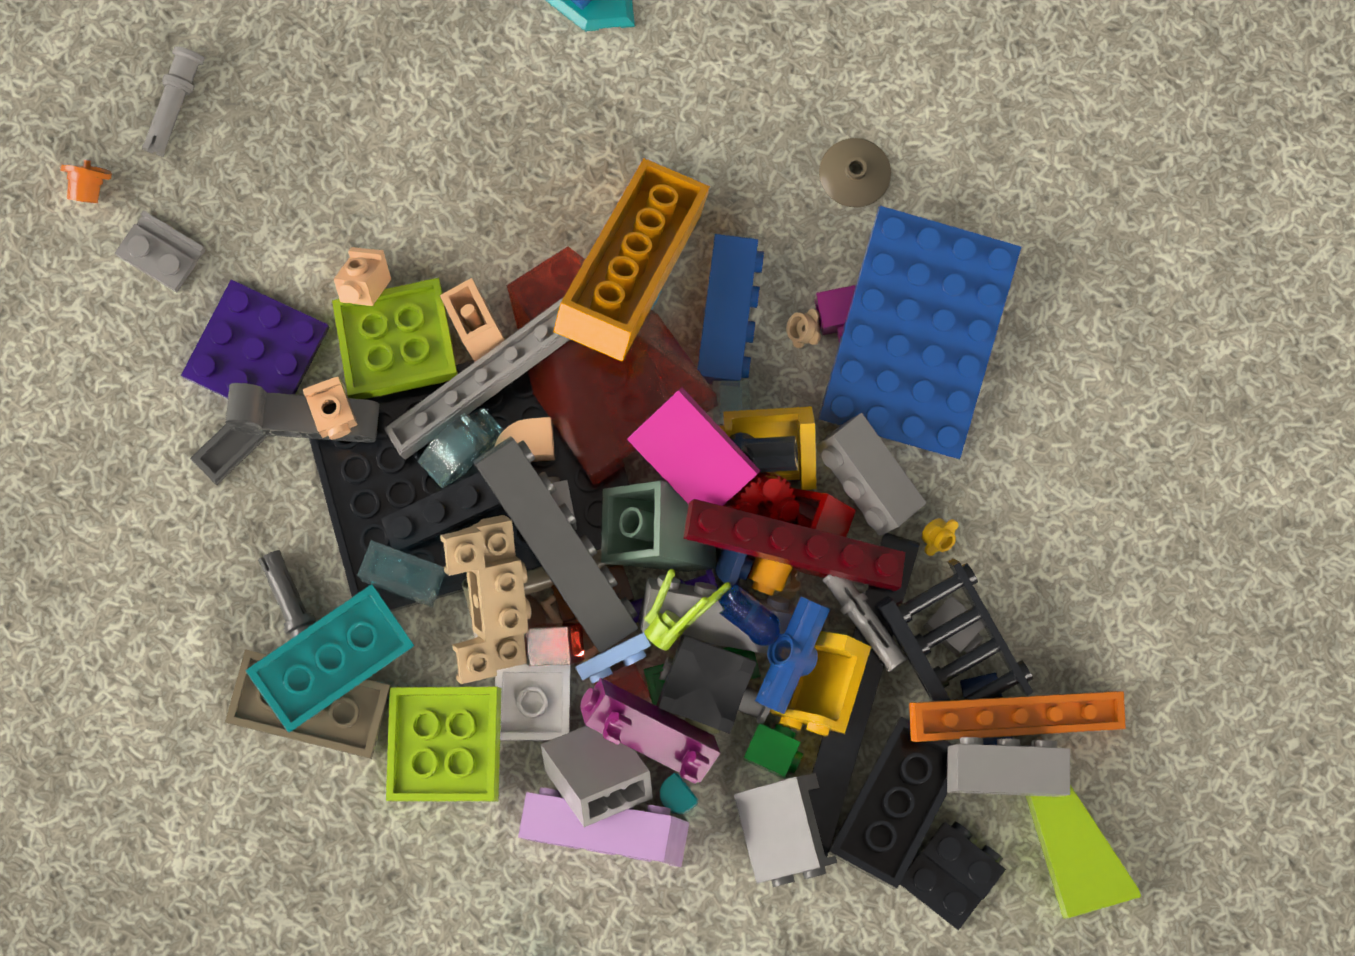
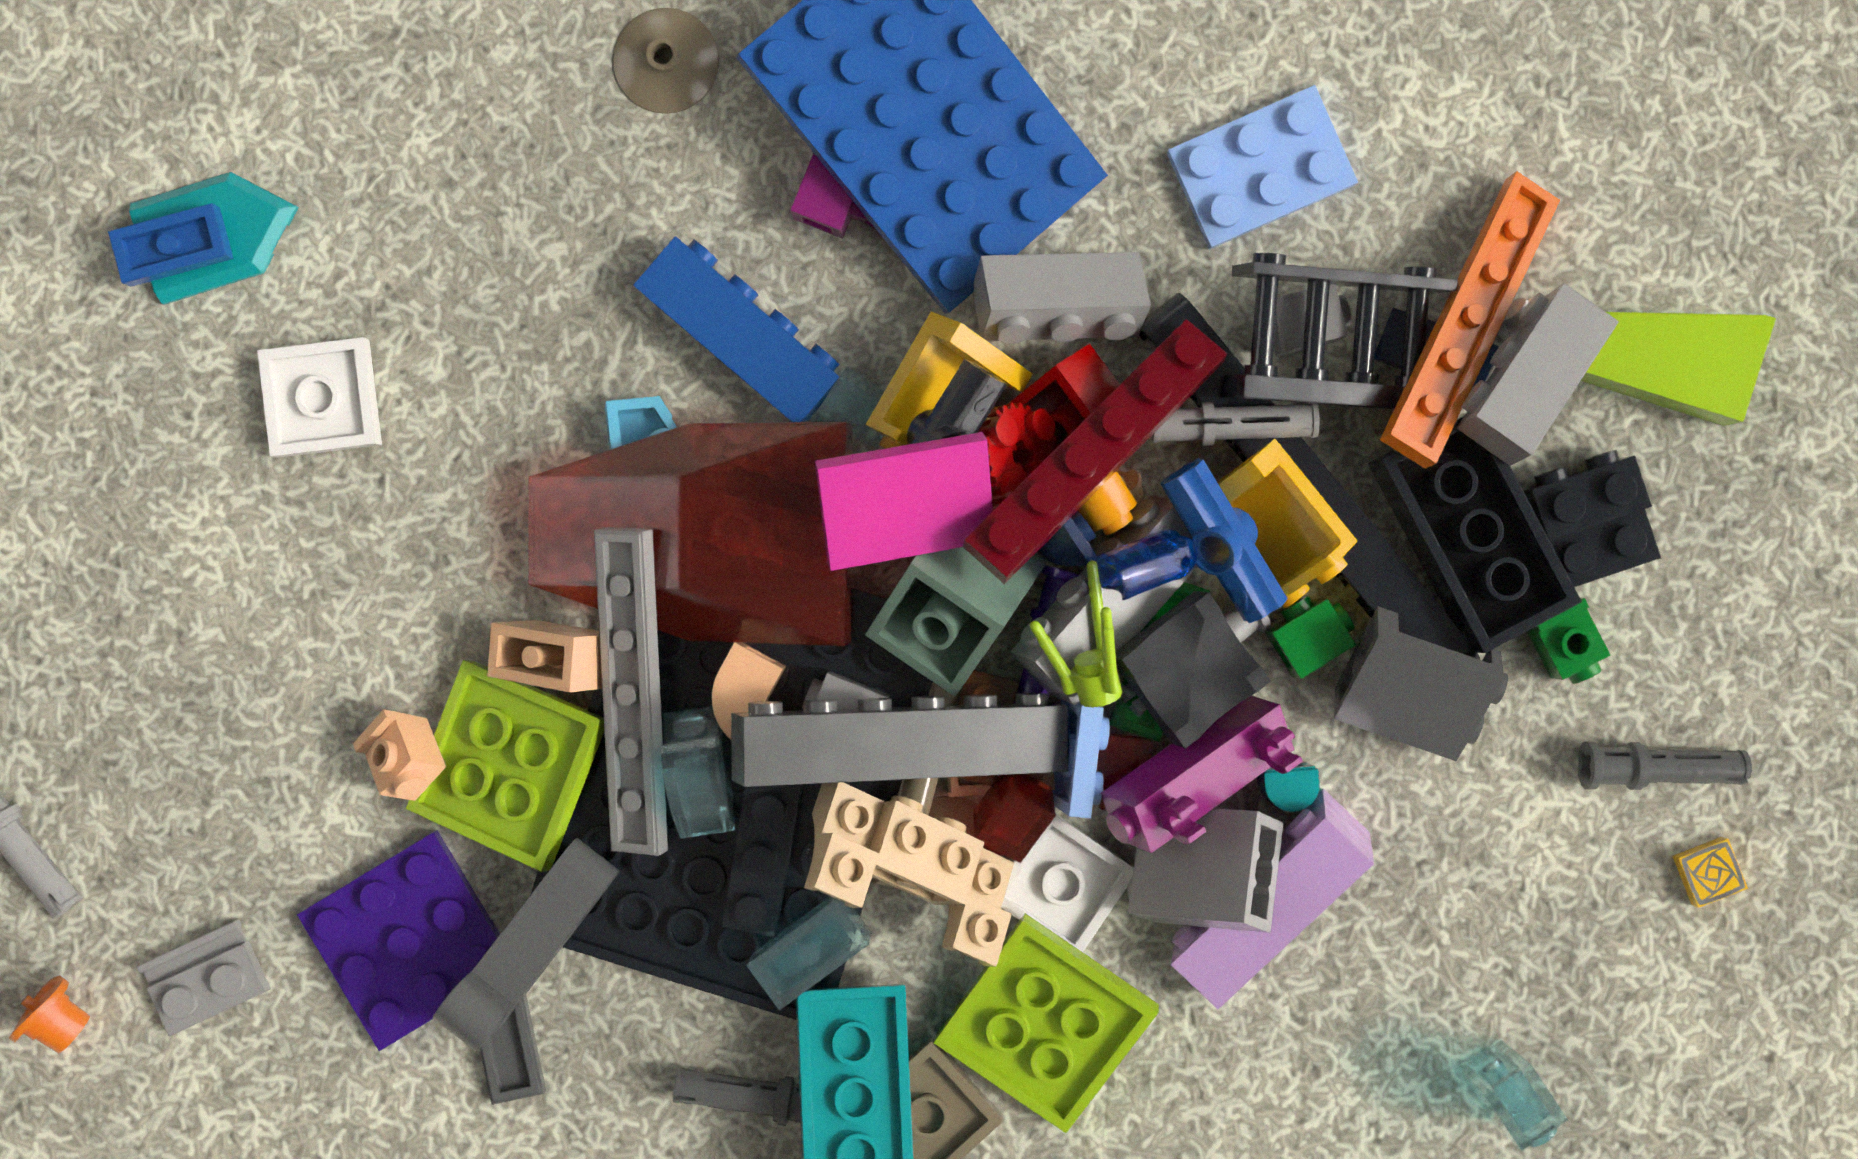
camera: 65 degrees left, 10 degrees up
(327, 393) = (564, 896): light nougat brick -> none
(535, 105) = (319, 397): none -> white plate
(631, 260) = (602, 414): light orange brick -> none
(804, 328) = (814, 262): tan plate -> none
(872, 890) = (1551, 645): none -> green brick
(939, 535) = (1185, 263): yellow plate -> none
(1025, 545) = (1262, 167): none -> light blue plate

